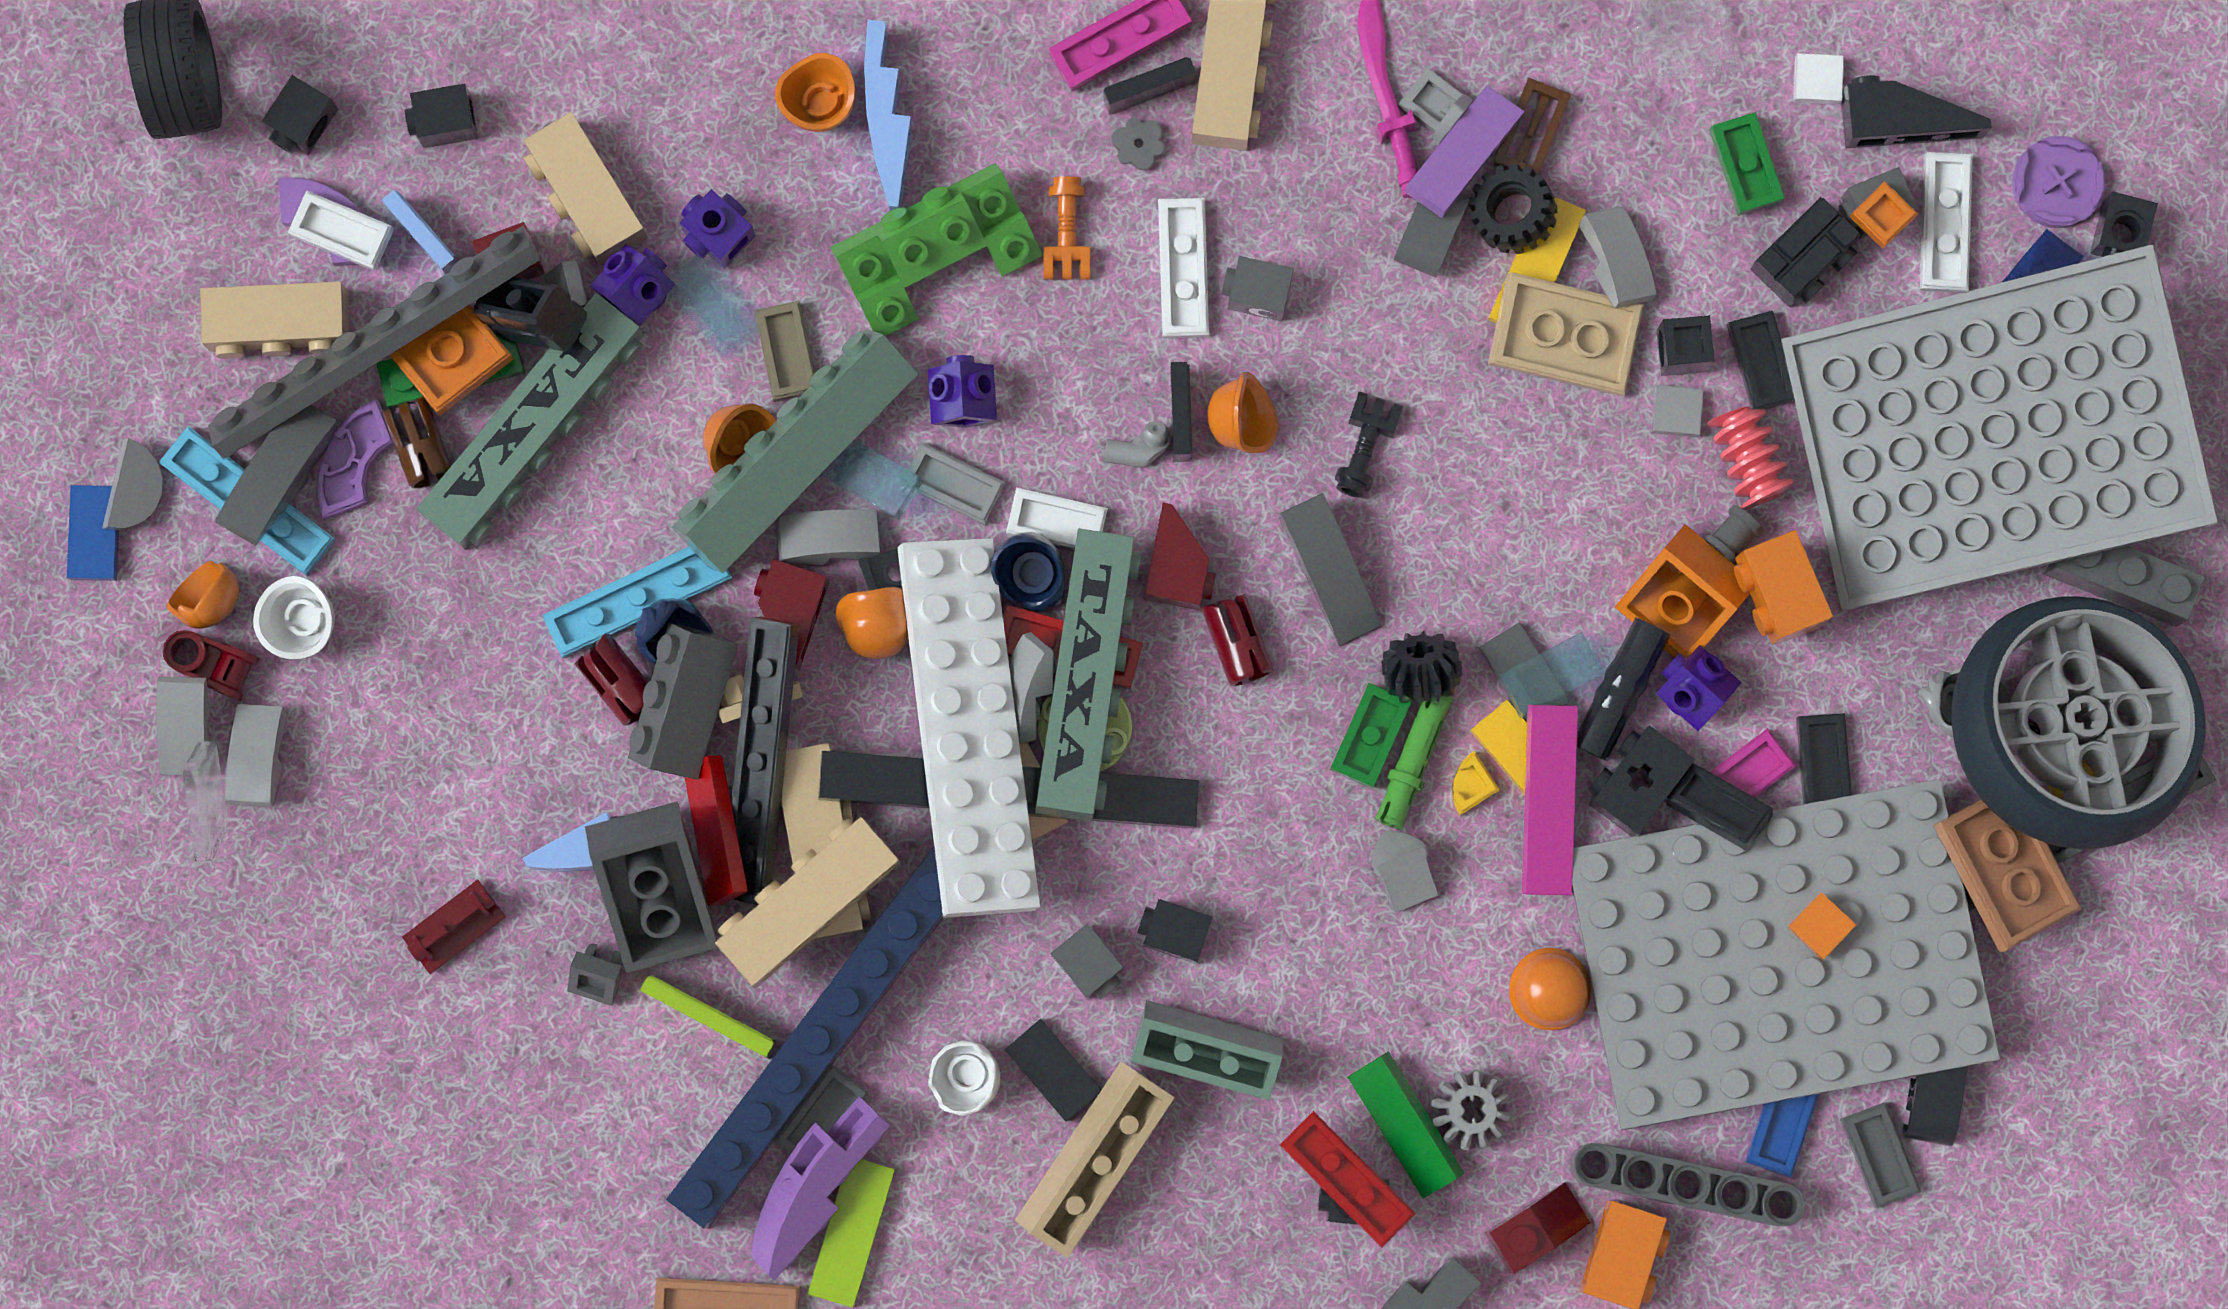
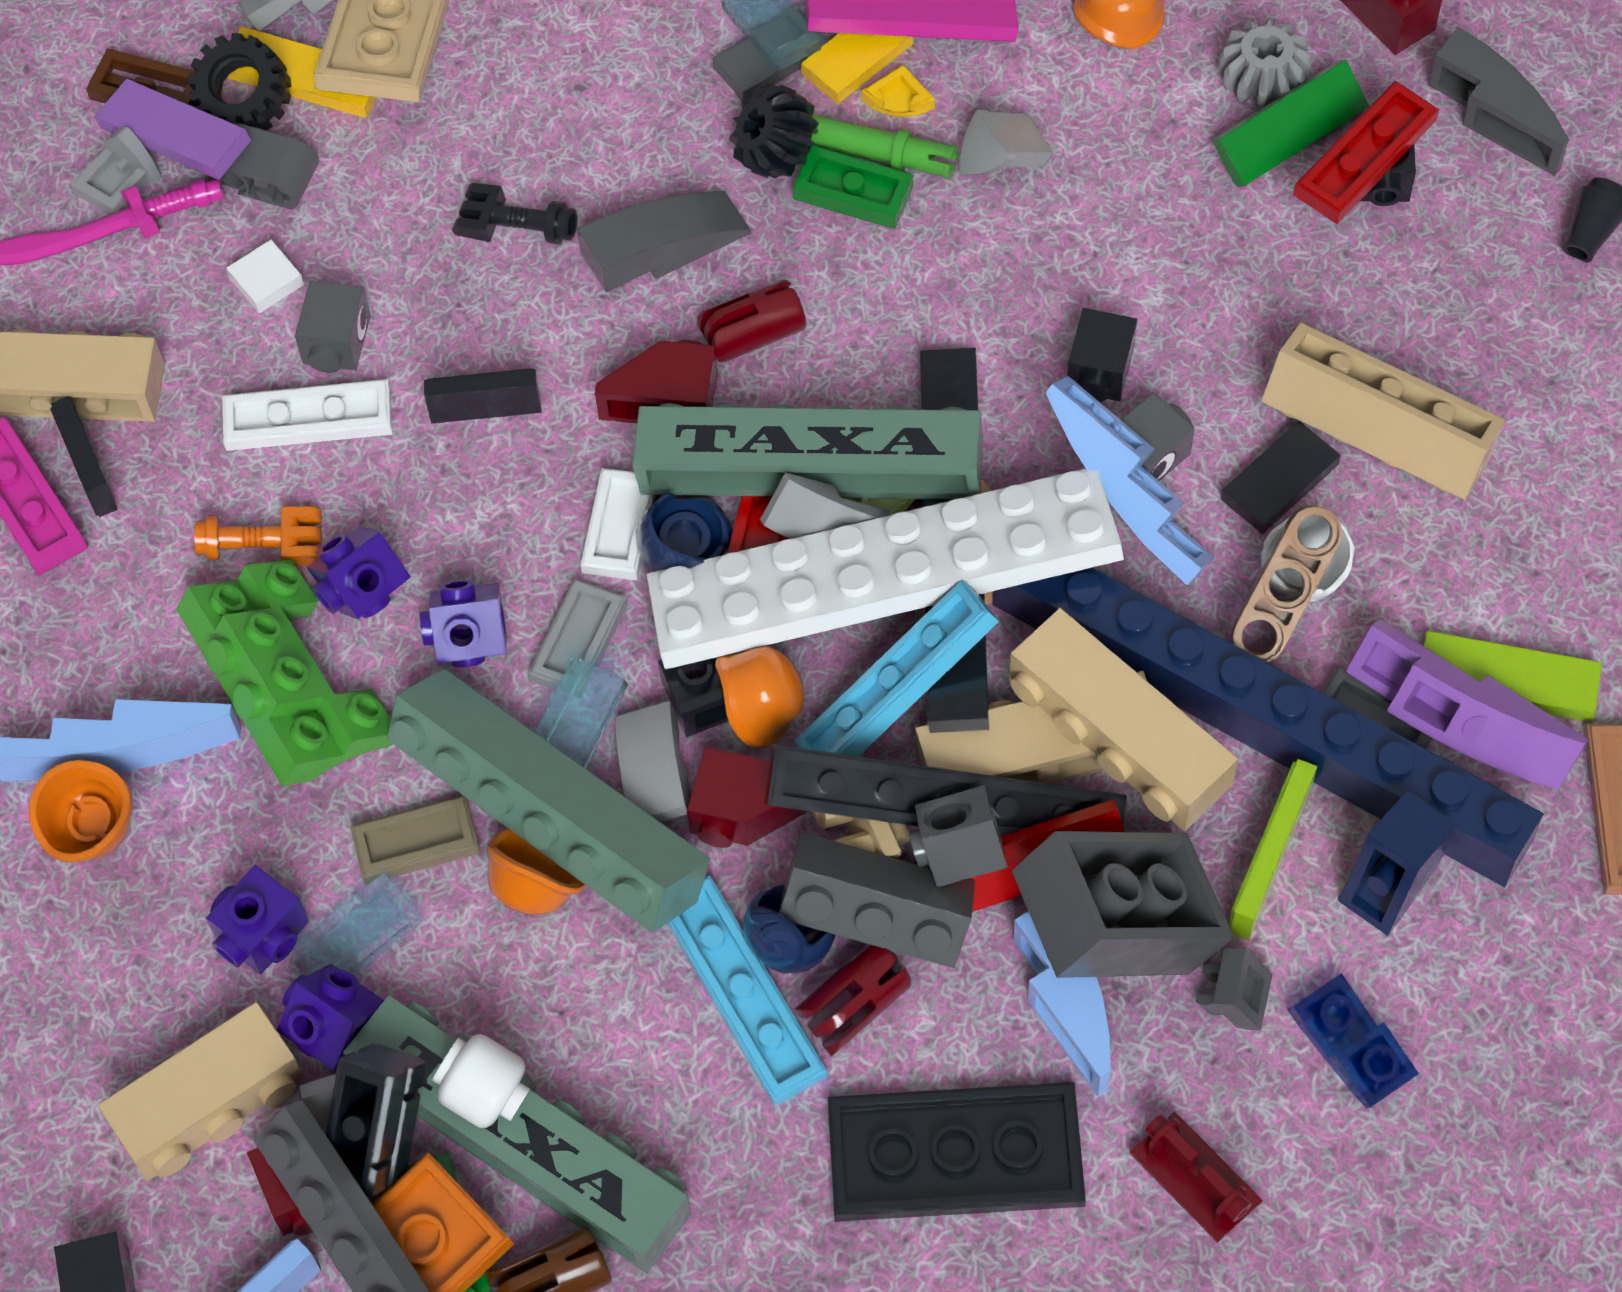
camera: 90 degrees left, 20 degrees down
(491, 749) = (955, 1152): none -> black tile
(550, 392) = (481, 1081): none -> white head
(550, 1060) = (1351, 1042): none -> clear blue slope
(680, 1112) = (1397, 861): none -> dark blue slope
(708, 780) = (958, 837): none -> dark grey brick
(866, 730) = (901, 674): none -> medium azure tile
(945, 1059) = (1287, 553): none -> medium nougat beam
(1015, 306) = (356, 573): none -> dark purple brick
(1029, 935) = (1138, 497): none -> light blue slope
(1135, 130) = (145, 461): flat silver plant -> none
(1140, 451) = (528, 439): light grey arm -> none
(1207, 1050) = (1237, 307): sand green brick -> none
(1243, 415) = (484, 333): orange helmet -> none
(1324, 232) = (265, 276): none -> white tile

